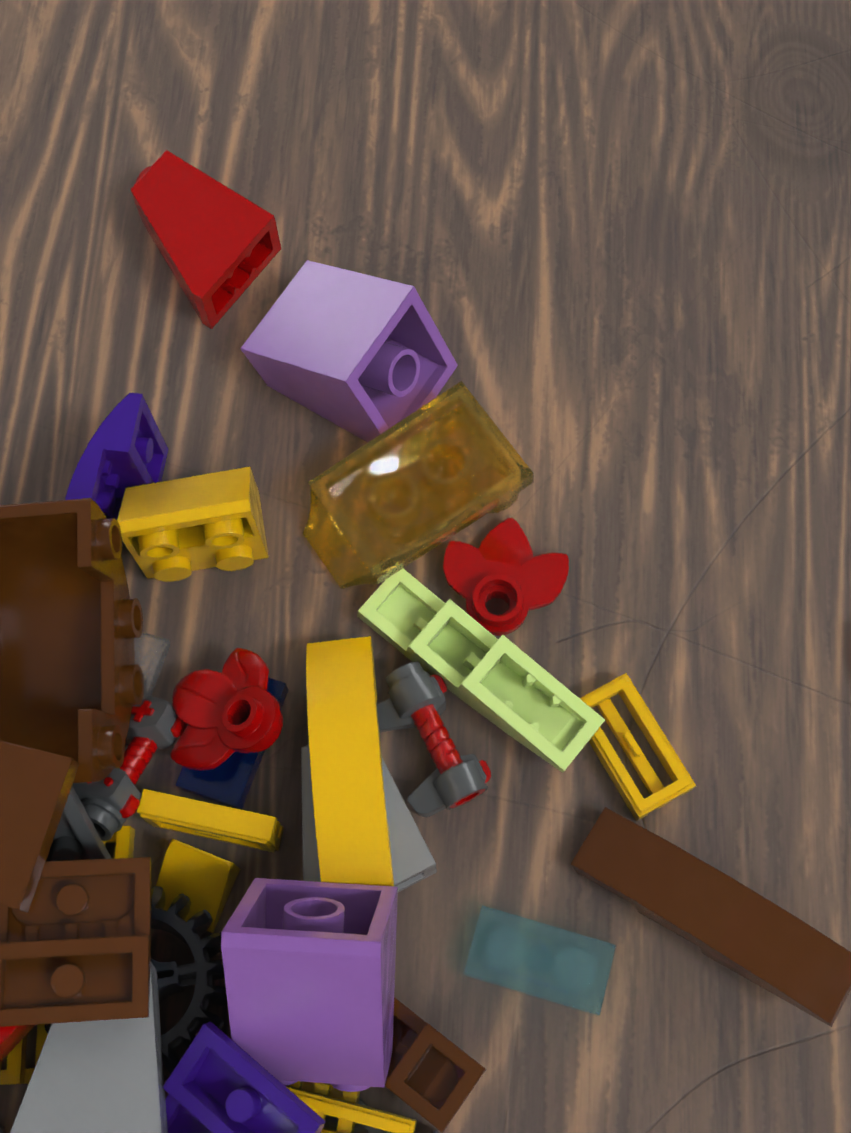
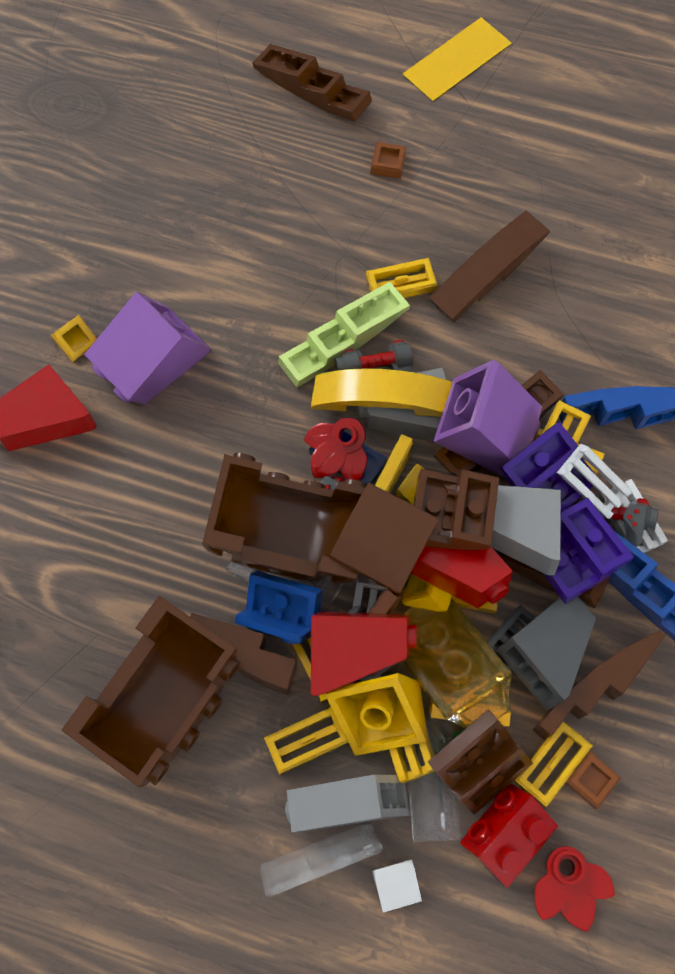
camera: 80 degrees left, 0 degrees up
(120, 455) = (181, 471): dark purple slope -> none
(194, 524) = (225, 430): yellow slope -> none
(354, 243) = (74, 338): none -> yellow slope
(412, 489) = (241, 339): clear yellow slope -> none
(504, 570) = (295, 311): red plate -> none
(540, 960) = (493, 341): clear light blue plate -> none

